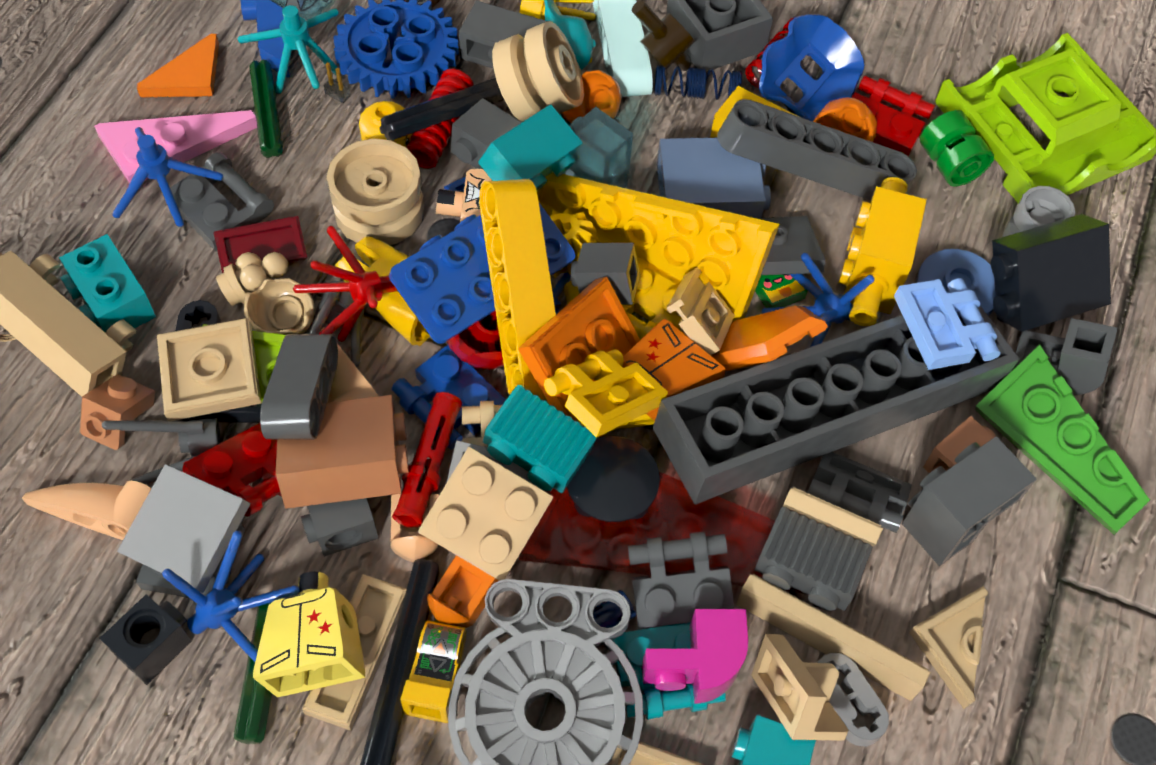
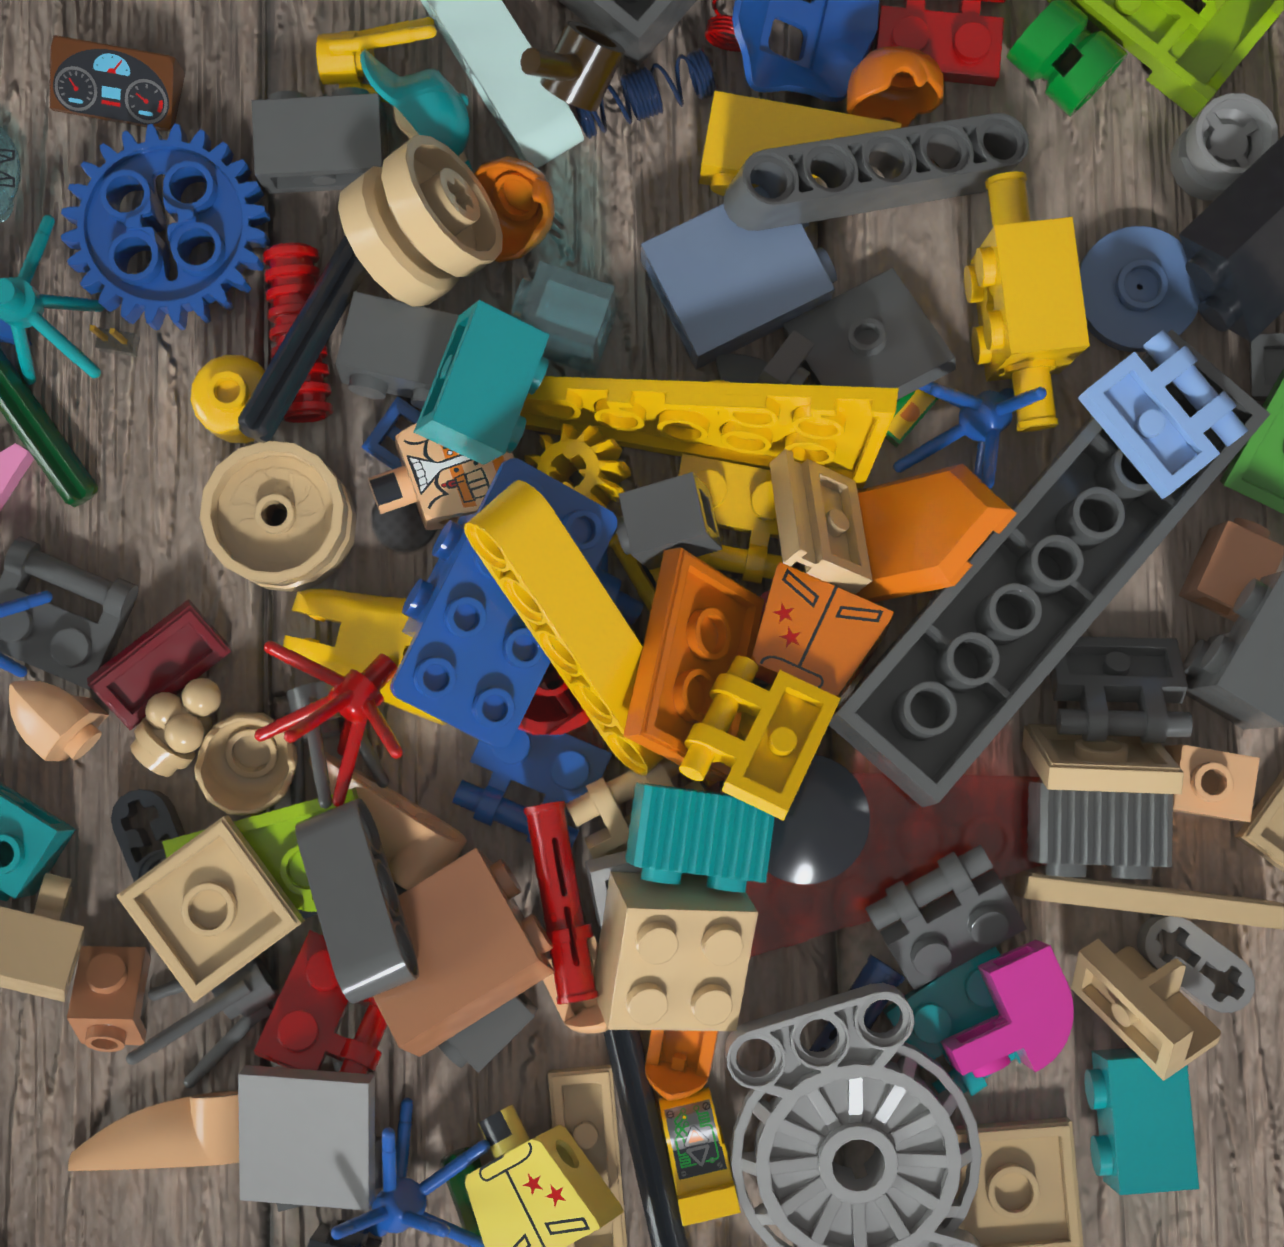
camera: 25 degrees left, 25 degrees up
(183, 244) = (54, 720): none -> light nougat plate
(899, 577) = (1215, 782): none -> light nougat brick

